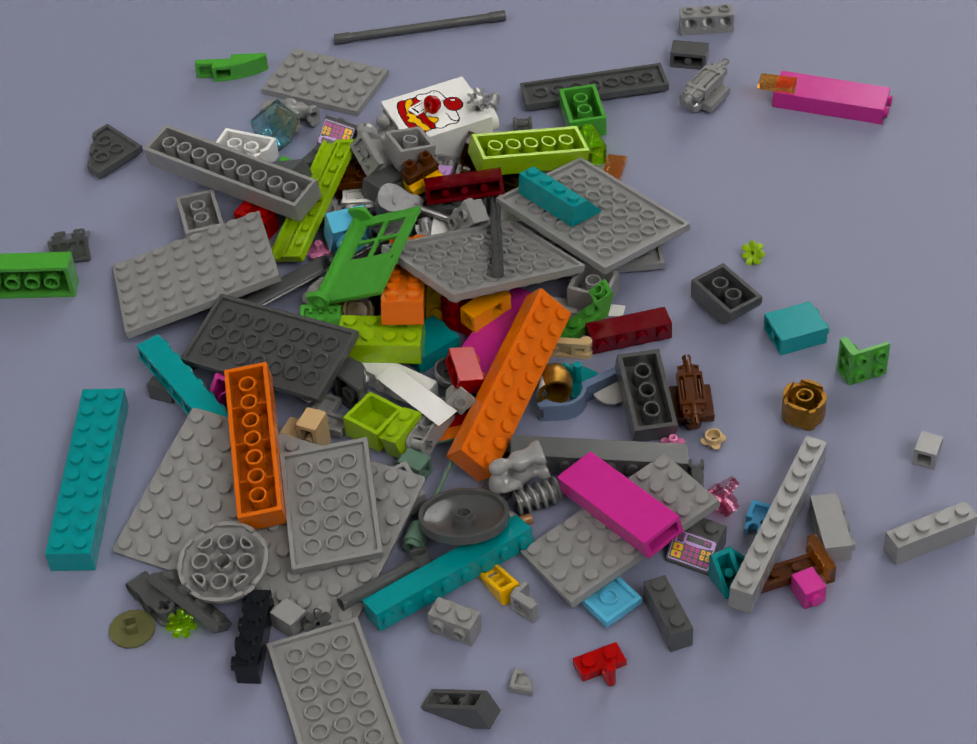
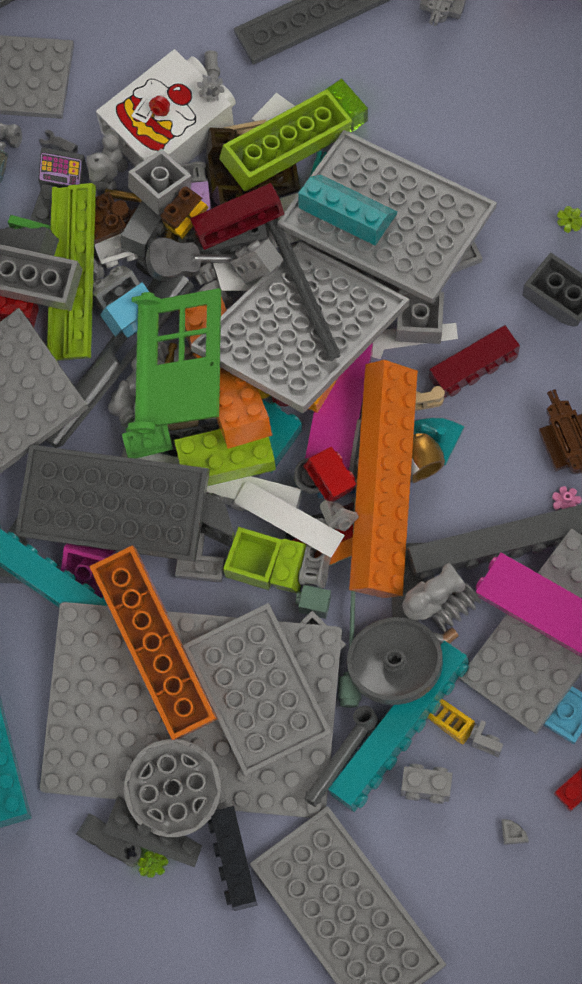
camera: 15 degrees left, 25 degrees up
(132, 629) = (101, 879): olive piece -> none
(288, 617) = (258, 825): light grey brick -> none
(310, 427) = (187, 594): tan brick -> none
(316, 620) = (288, 822): dark grey plant -> none
(318, 249) = (99, 332): bright pink plant -> none
(370, 153) = (117, 198): light grey bracket -> none
(466, 707) = (468, 880): dark grey slope -> none
(526, 122) = (258, 91): dark grey bush -> none
(567, 410) = (429, 491): sand blue piece -> none
(583, 107) = (321, 56): bright green brick -> none
(597, 310) = (433, 352): bright green slope -> none
(610, 395) = (487, 453): light grey brick -> none
(615, 165) = (380, 129): clear orange tile -> none
(645, 395) = (526, 454): dark grey brick -> none

